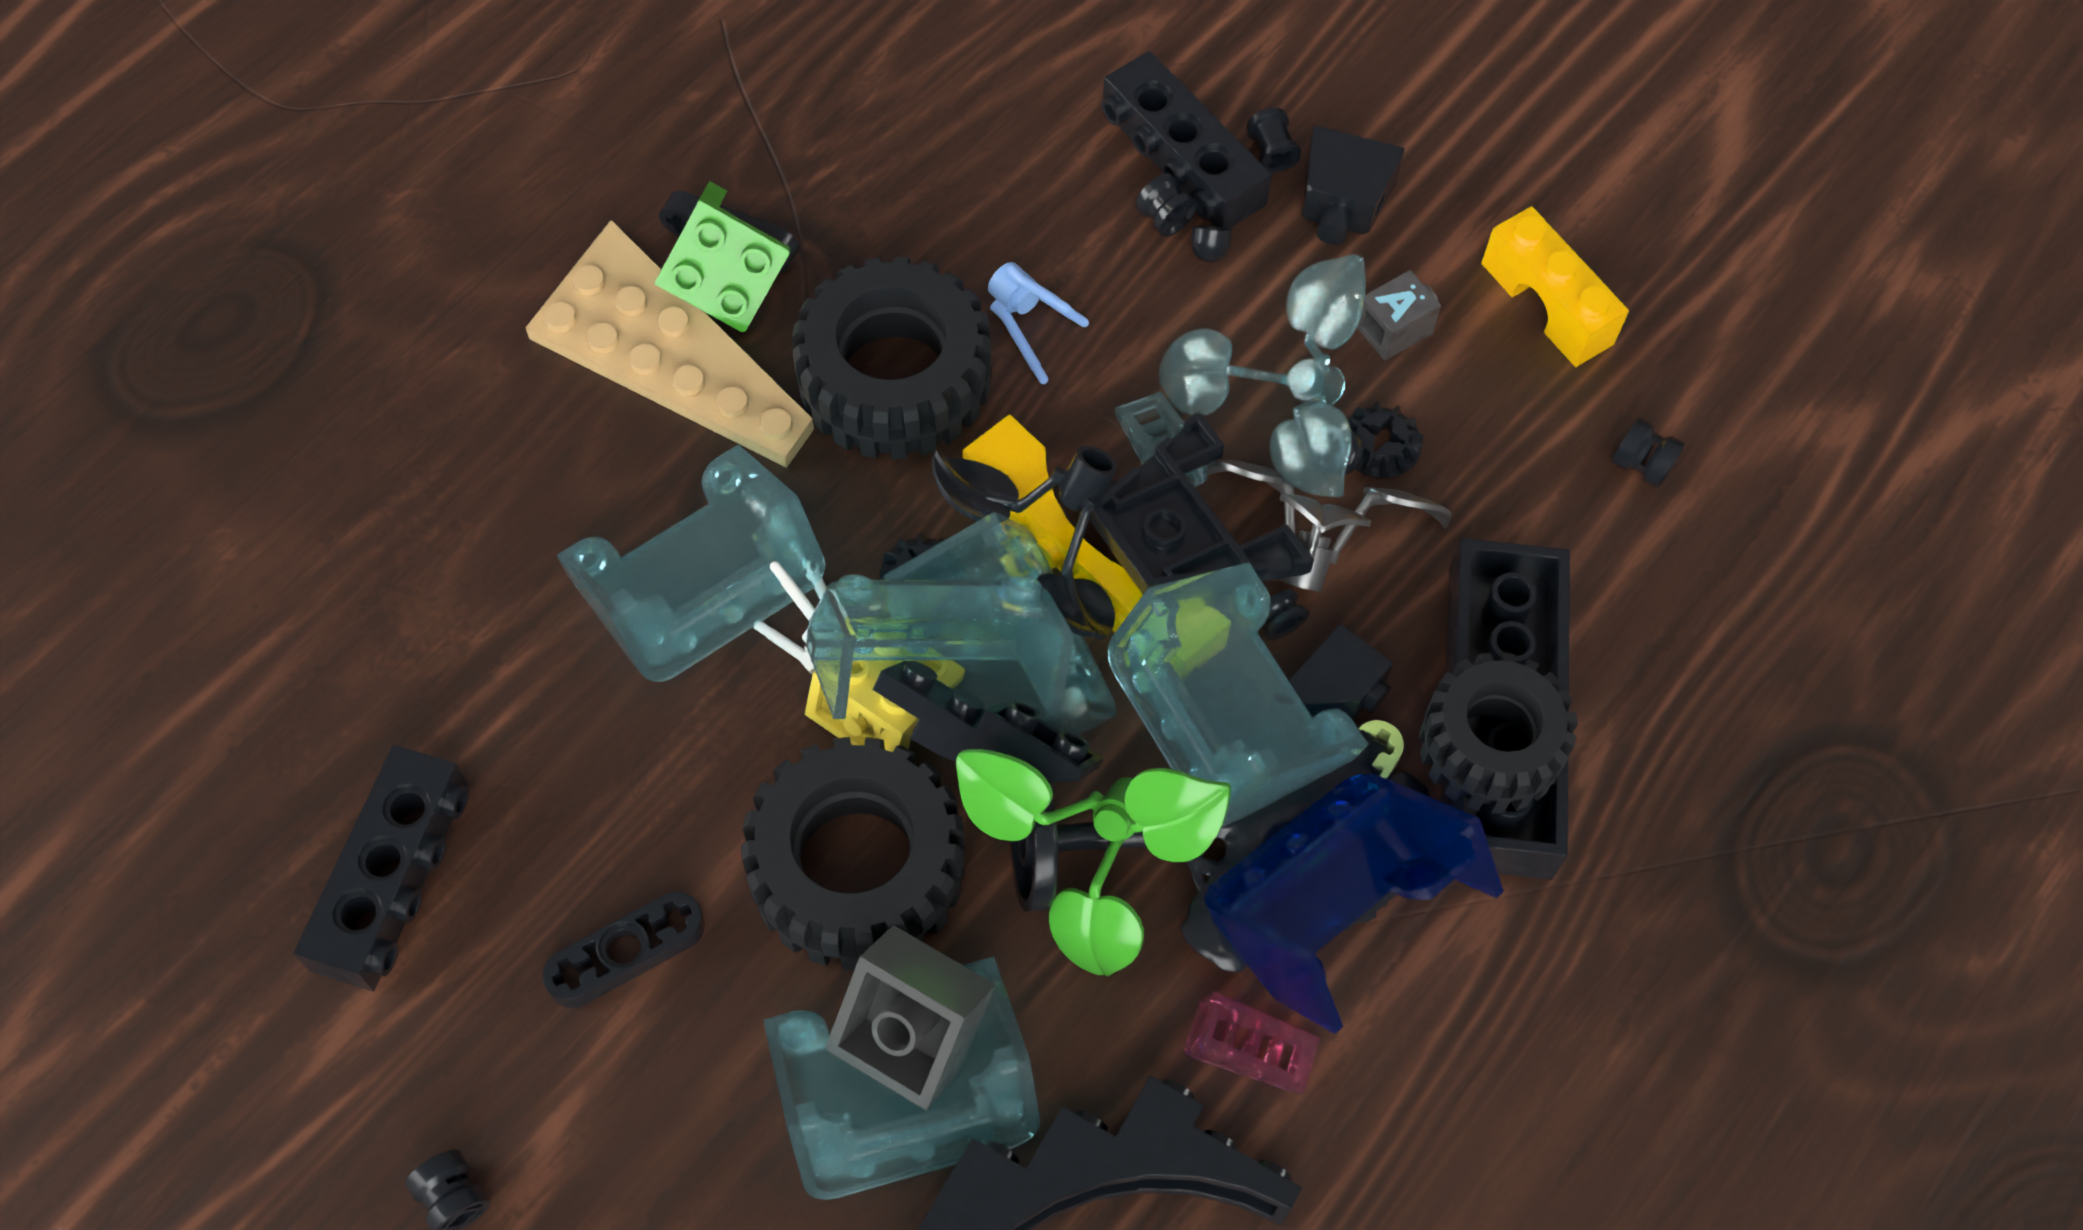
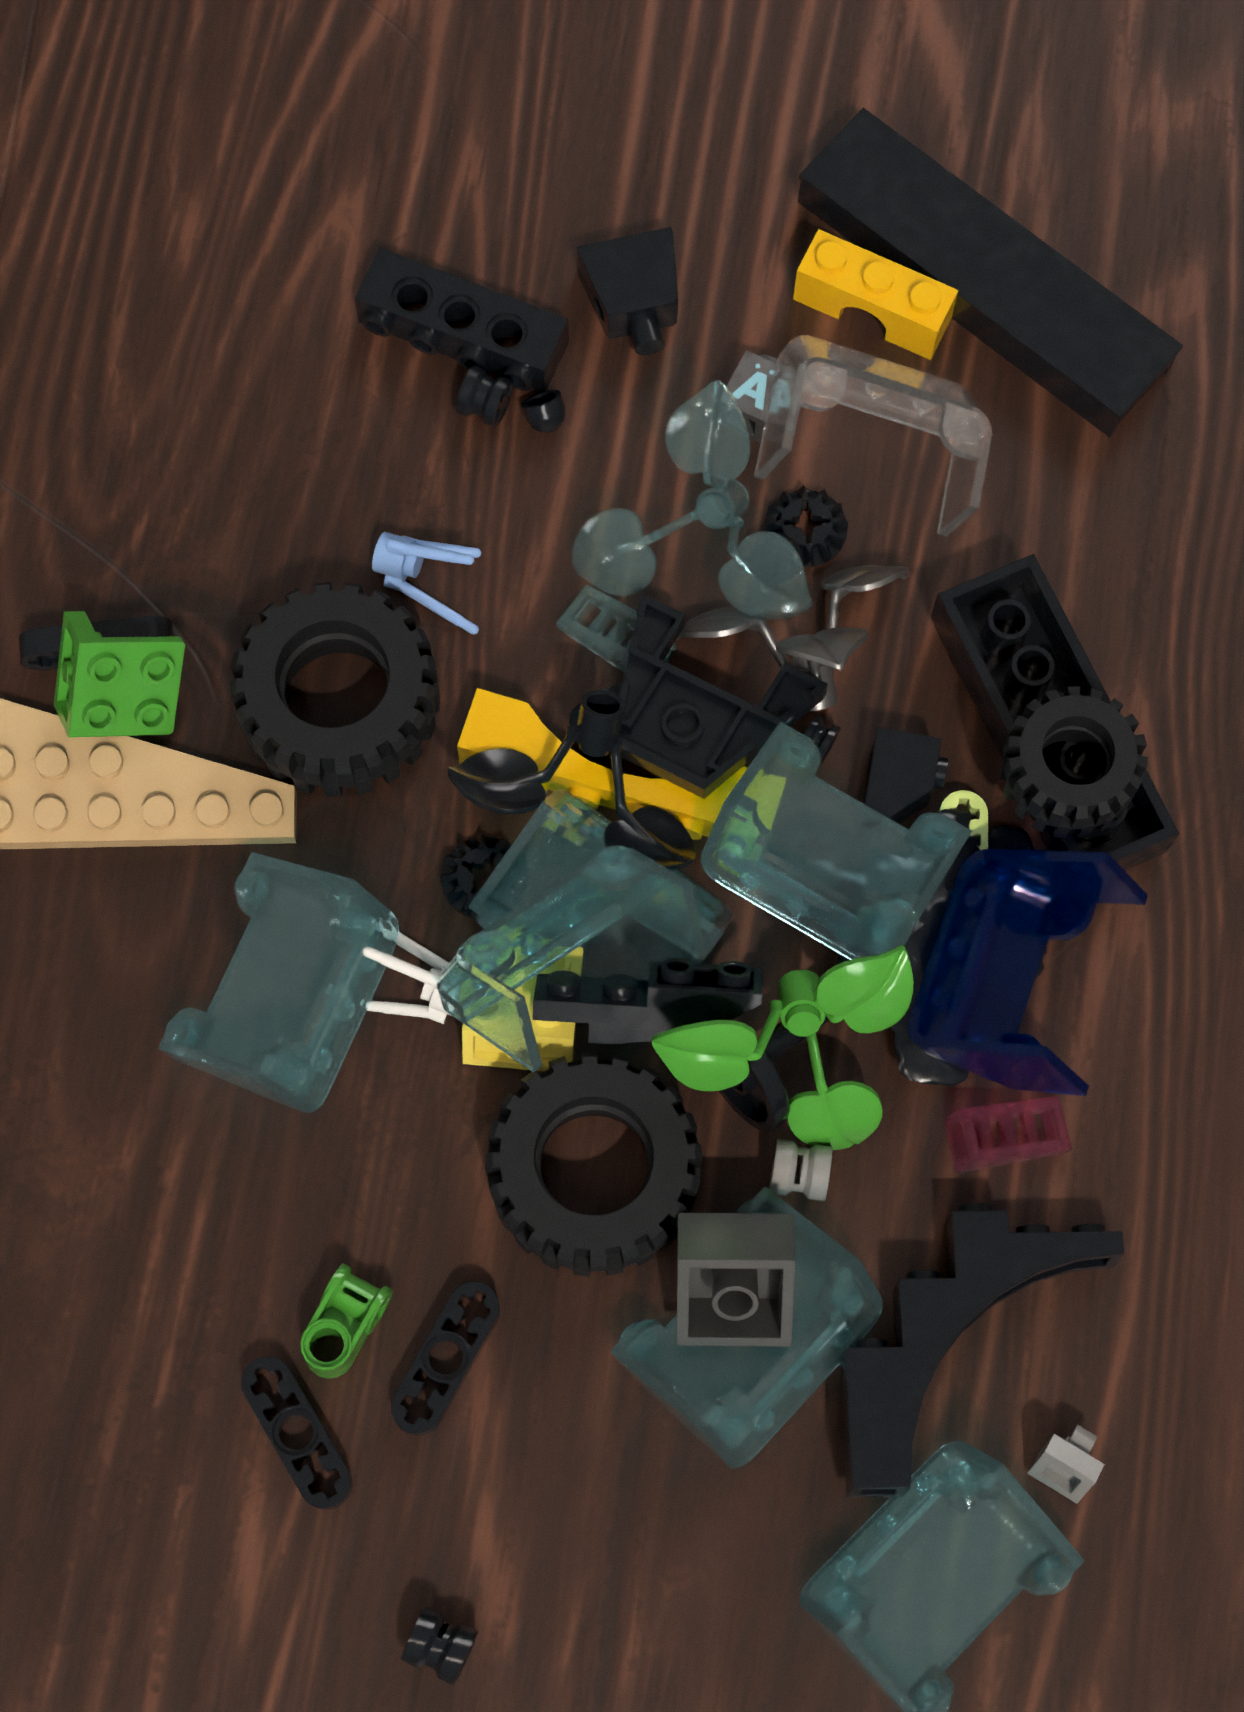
camera: 30 degrees left, 10 degrees up
(403, 785) = (162, 1328): black brick -> none
(437, 978) = (263, 1403): none -> black beam
(559, 862) = (344, 1318): none -> bright green piece
(1038, 964) = (813, 1172): none -> light grey wheel
(1273, 139) = (541, 276): black bush -> none
(1514, 361) = (826, 374): none -> clear windscreen
(1638, 446) = (1029, 410): black wheel -> none
(1678, 328) = (1010, 283): none -> black tile

